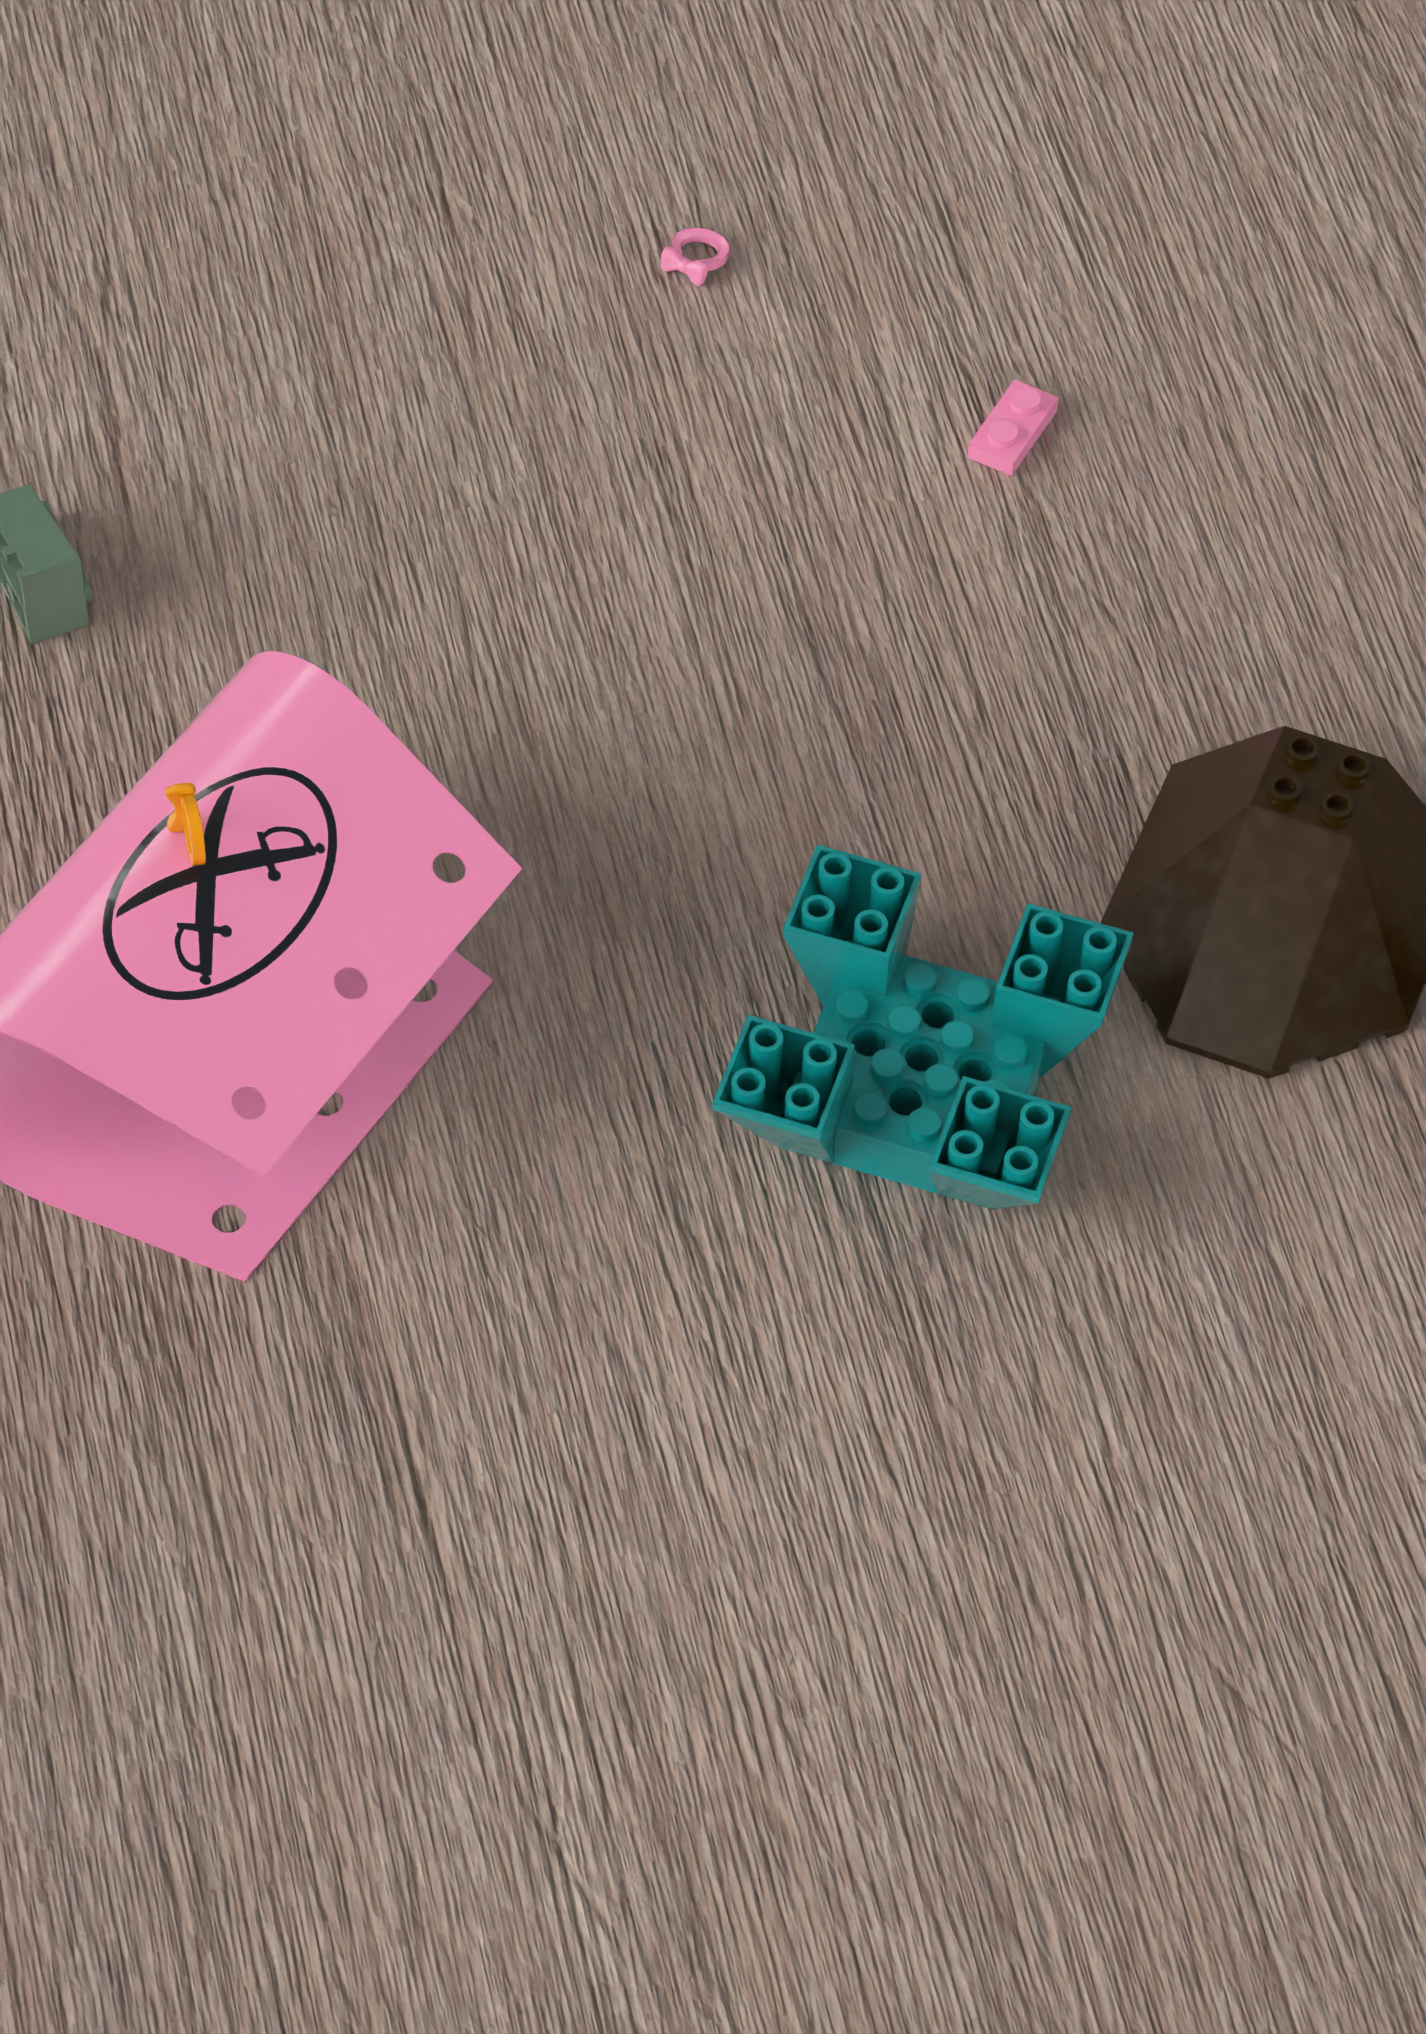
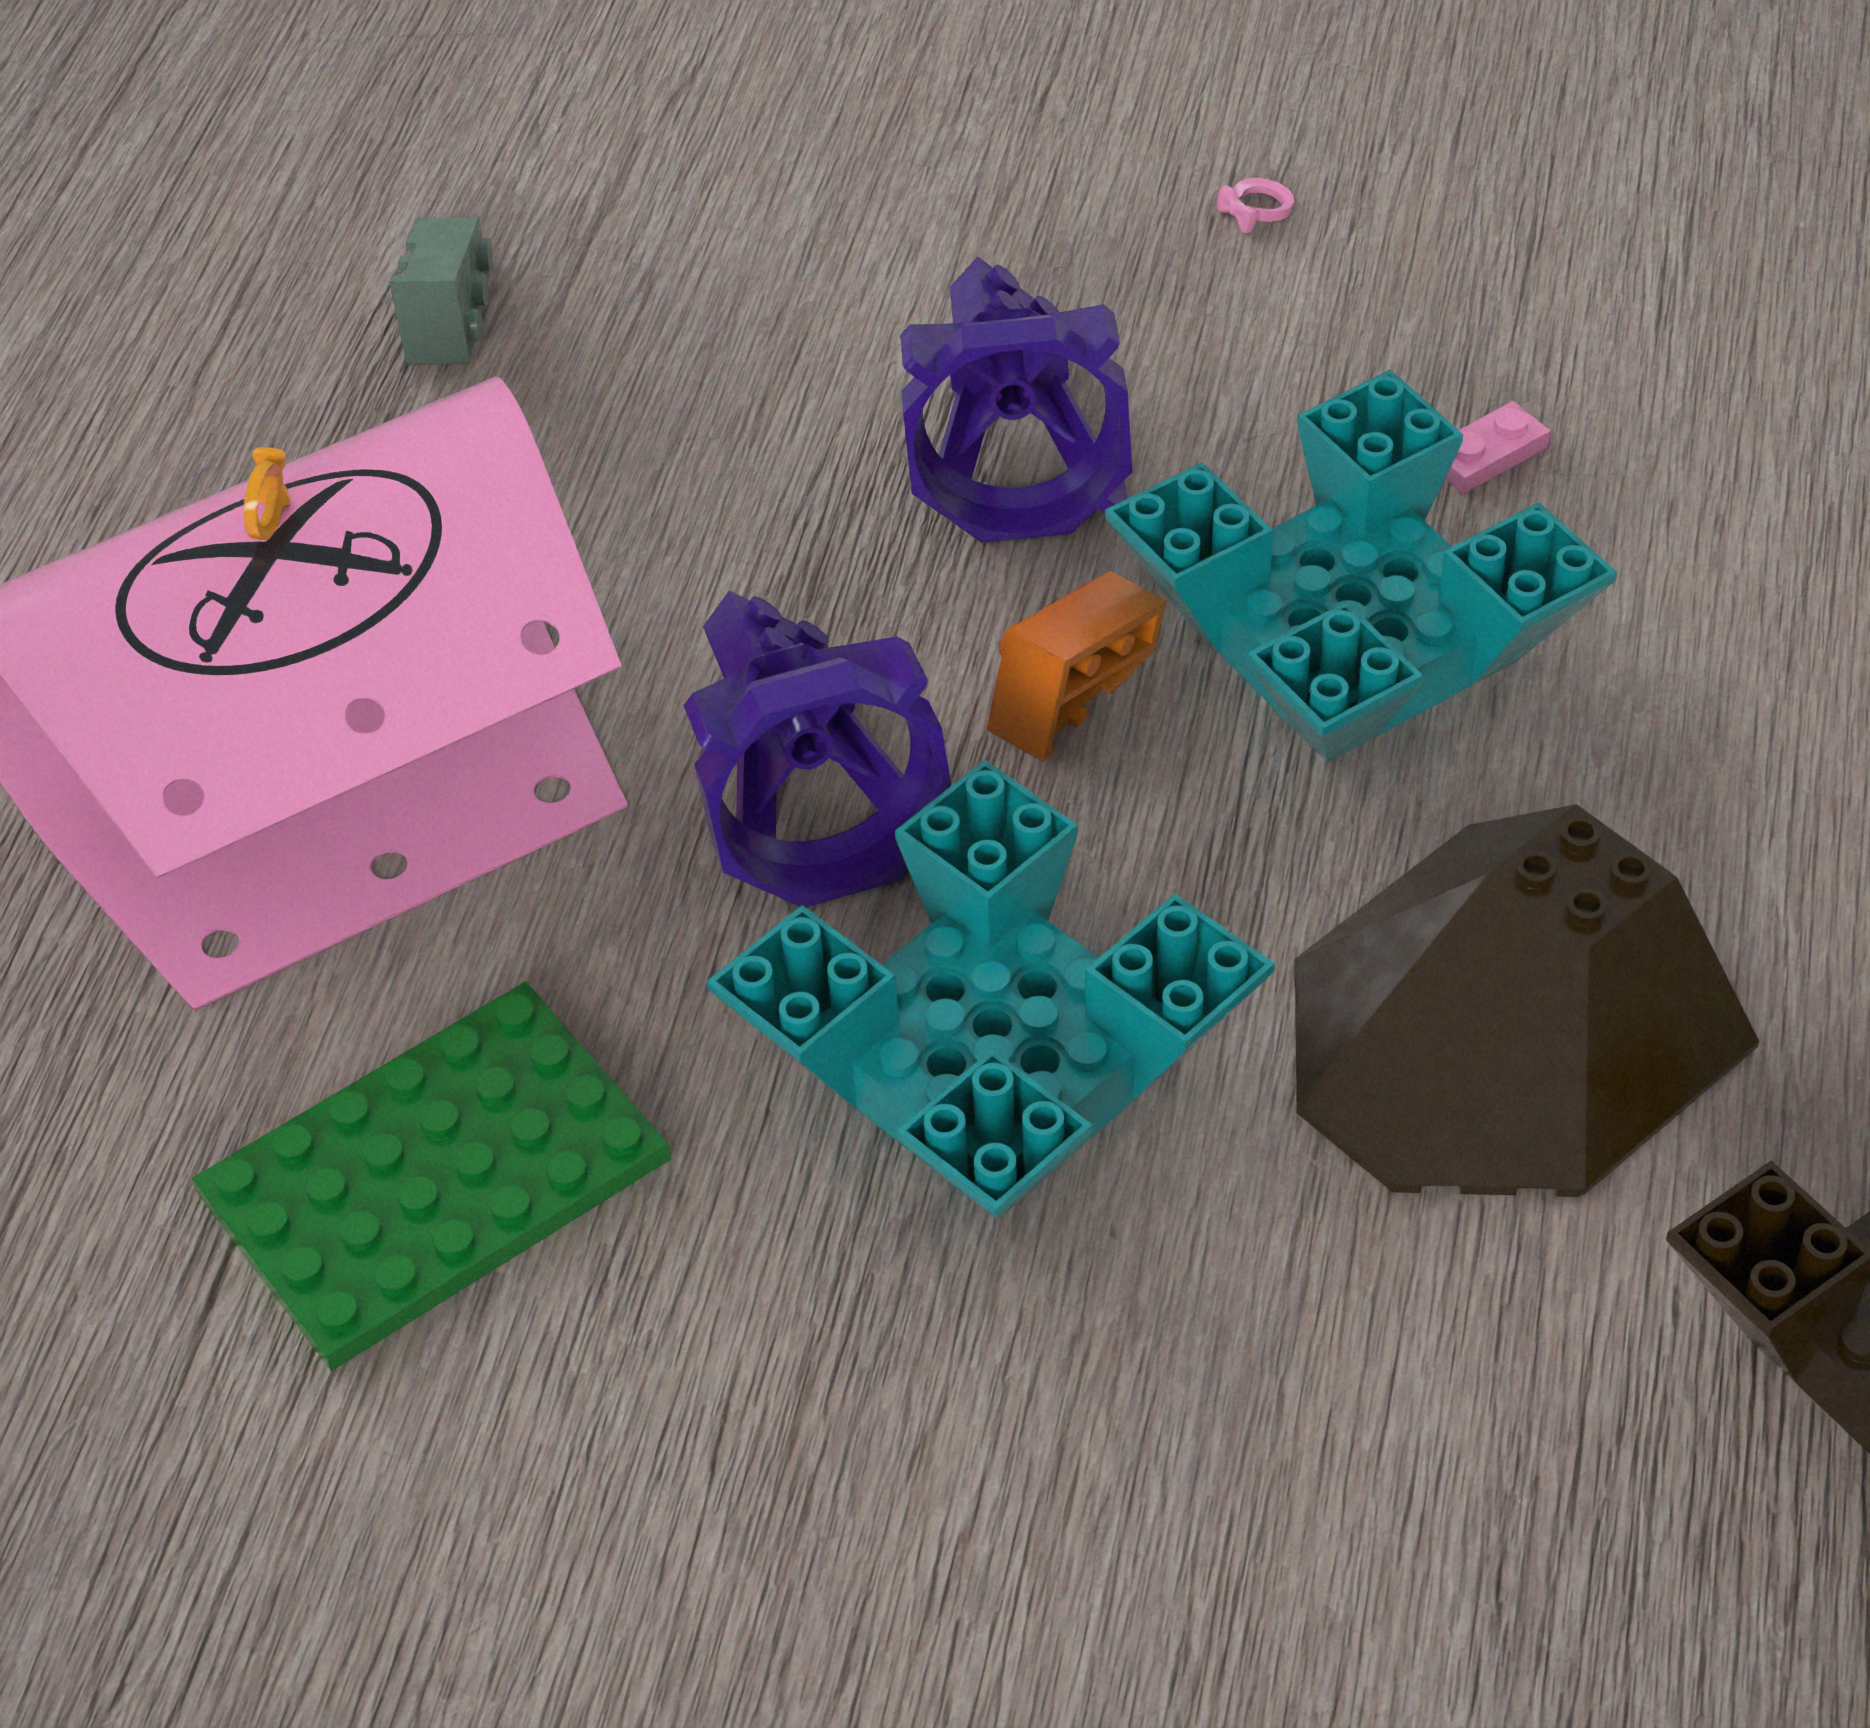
camera: 30 degrees right, 5 degrees down
(532, 1337) = (429, 1173): none -> green plate
(606, 488) = (1006, 362): none -> dark purple plate
(632, 848) = (791, 707): none -> dark purple plate
(792, 729) = (1067, 656): none -> orange wedge
(985, 602) = (1358, 601): none -> teal slope

